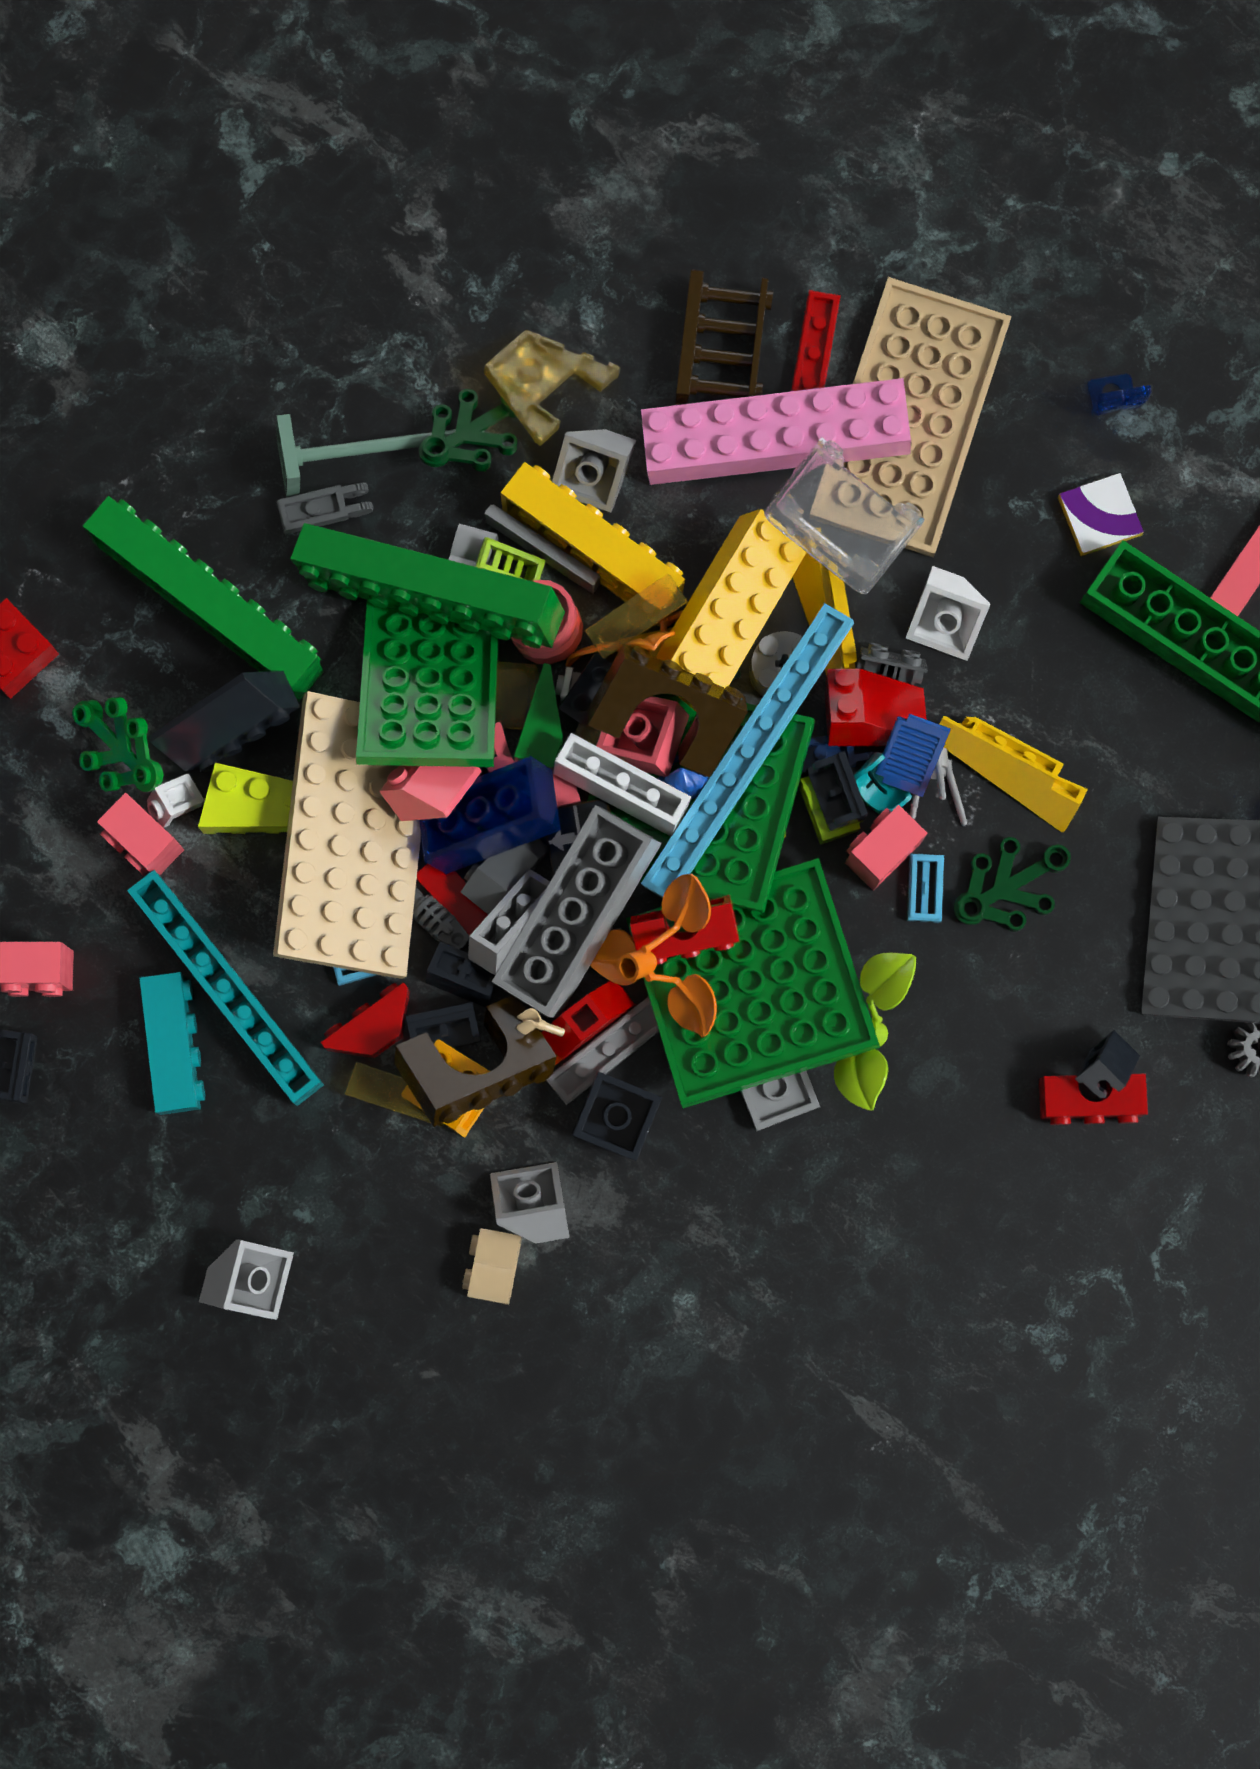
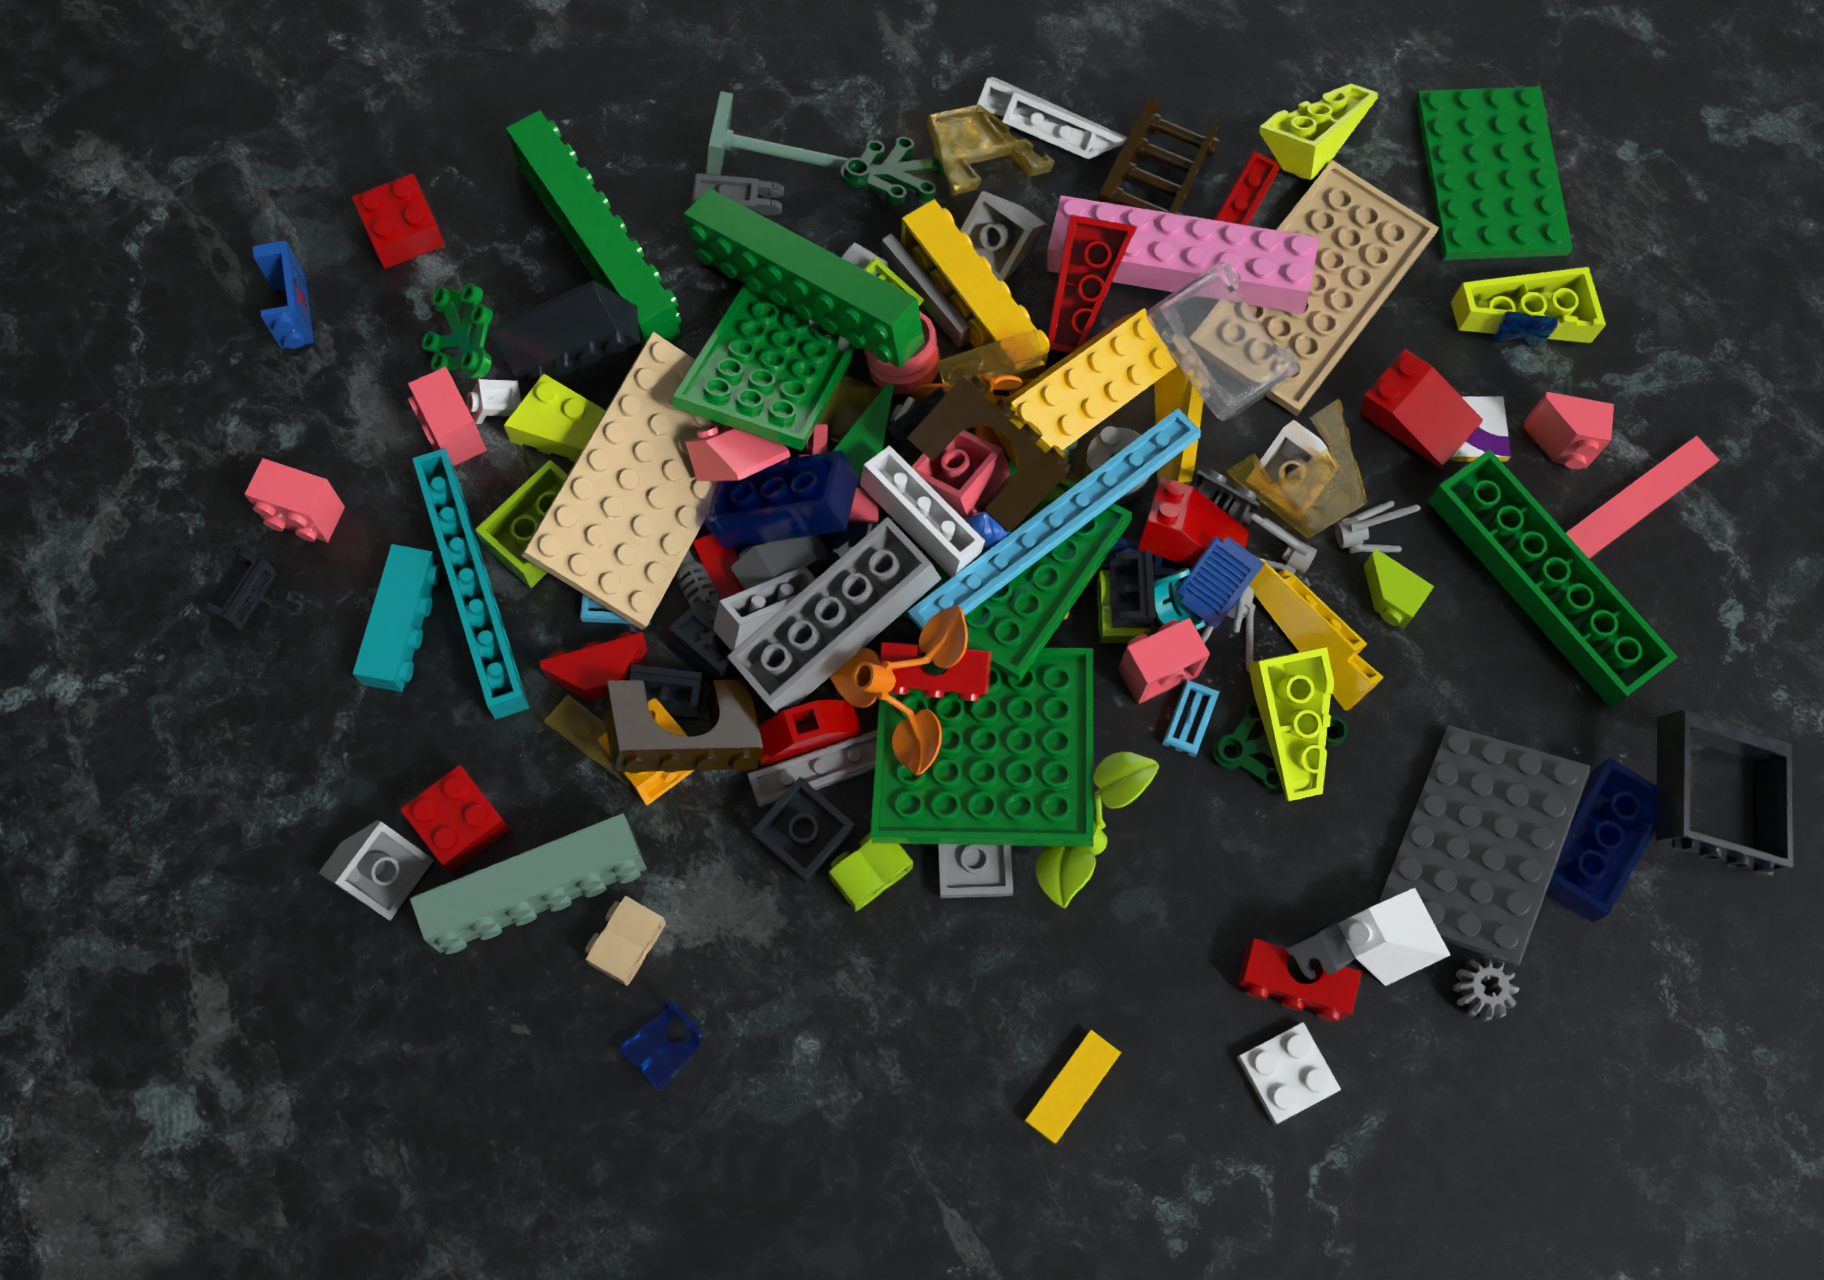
camera: 20 degrees right, 10 degrees down
(253, 912) = (516, 520): none -> lime brick
(300, 1211) = (455, 819): none -> red brick
(392, 1248) = (528, 885): none -> sand green brick
(530, 1202) = (686, 890): light grey slope -> none
(532, 1020) = (752, 703): tan hand -> none
(556, 1355) = (656, 1055): none -> clear blue piece
(598, 323) = (1047, 120): none -> white wedge
(685, 1130) = (869, 871): none -> lime brick
(694, 485) = (1087, 268): none -> red wedge
(861, 251) = (1316, 131): none -> neon yellow wedge
(926, 1257) = (1072, 1087): none -> yellow tile
(974, 634) = (1317, 490): none -> clear yellow wing
(974, 696) = (1297, 554): none -> light grey plant
(1017, 851) = (1294, 708): none -> neon yellow wedge
(1019, 658) = (1354, 530): none -> light grey plant
(1046, 234) = (1493, 173): none -> green plate
(1048, 515) = (1420, 409): none -> red slope
(1074, 703) = (1394, 589): none -> lime slope
(1108, 1181) = (1288, 1073): none -> white plate
(1139, 360) = (1556, 294): none -> neon yellow wedge
(1165, 1032) = (1394, 937): none -> white slope
(1192, 490) = (1570, 428): none -> coral slope

